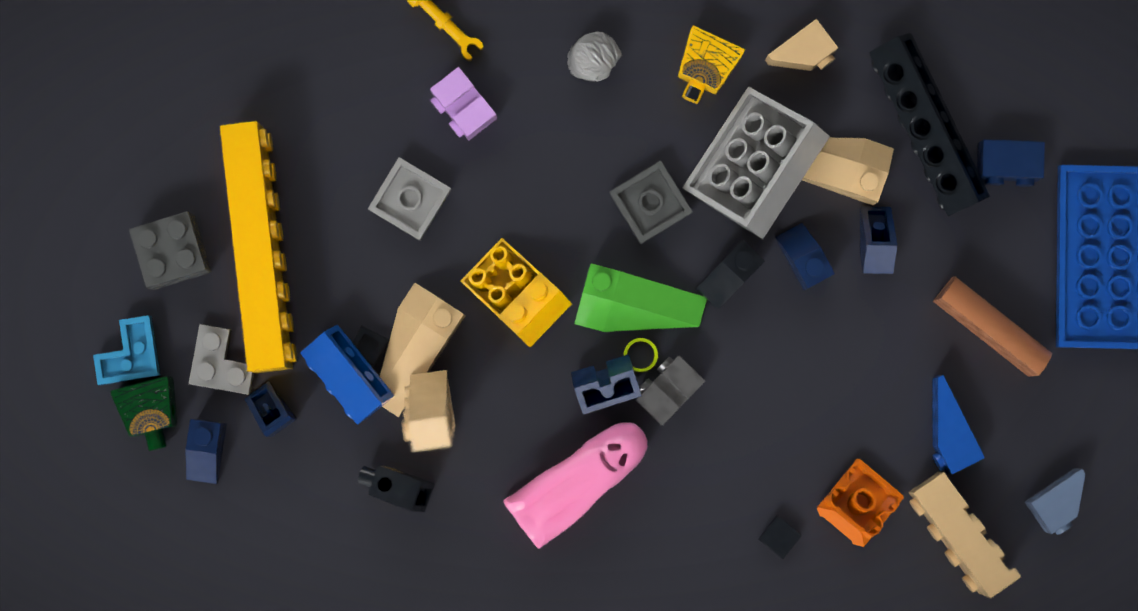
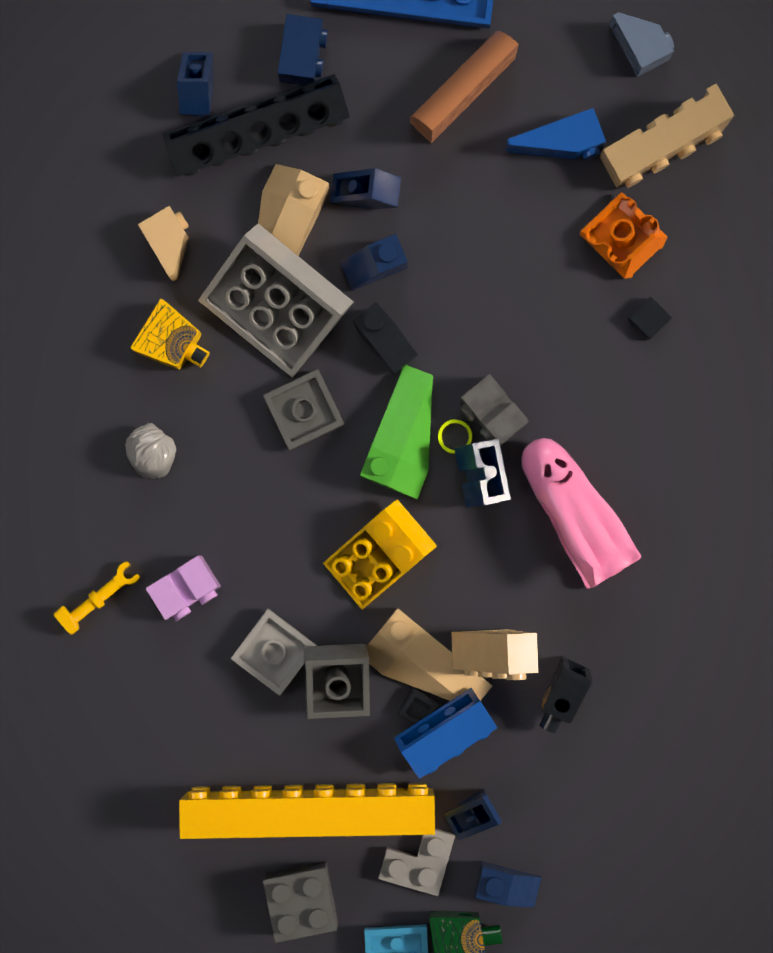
camera: 80 degrees left, 0 degrees up
(387, 262) = (336, 681): none -> dark grey brick
(965, 60) = (195, 83): none -> dark blue slope

